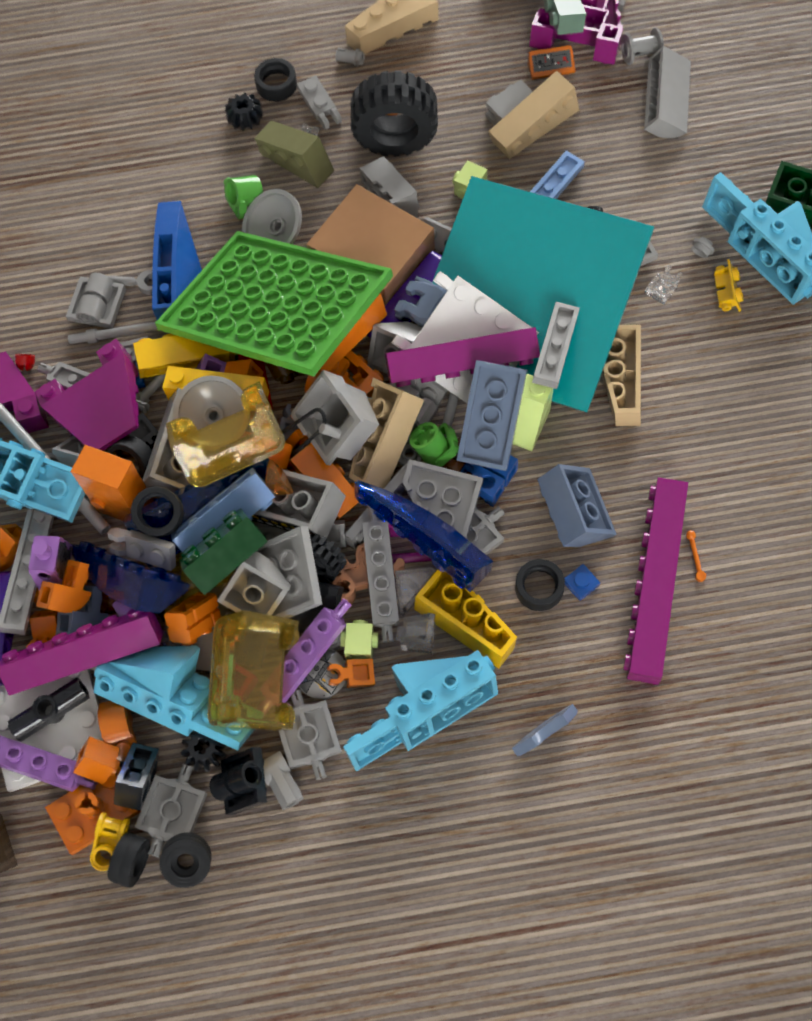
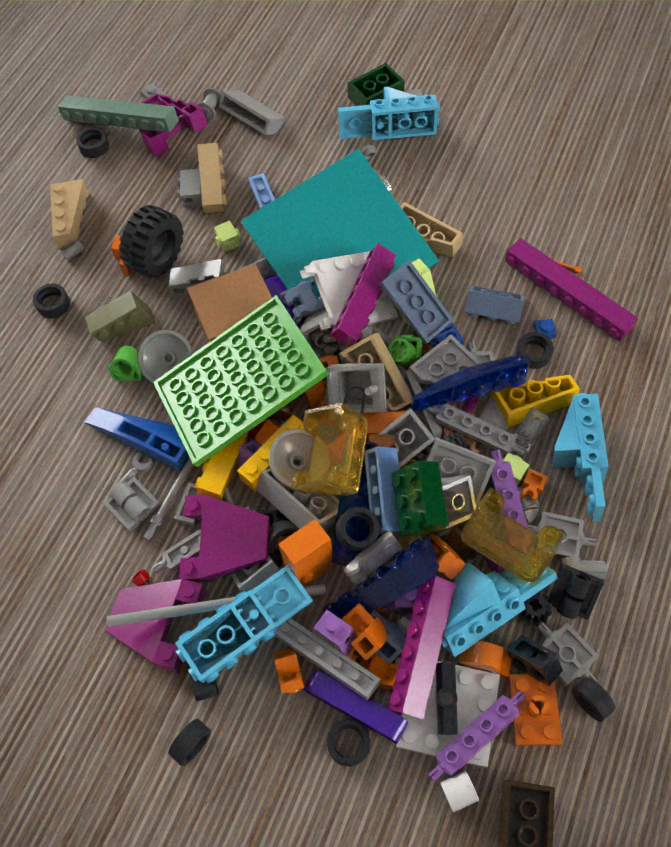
camera: 60 degrees left, 5 degrees down
(97, 760) = (509, 681): orange brick -> none
(107, 835) = (570, 705): yellow piece -> none
(180, 875) = (601, 660): black tyre -> none
(243, 111) = (59, 331): black gear -> none
(318, 101) = (91, 286): light grey hinge -> none
(544, 730) = (633, 398): sand blue tile -> none
(547, 61) = (177, 153): slope -> none
(556, 345) = (395, 242): light grey plate -> none
(728, 278) = (409, 155): yellow hinge -> none

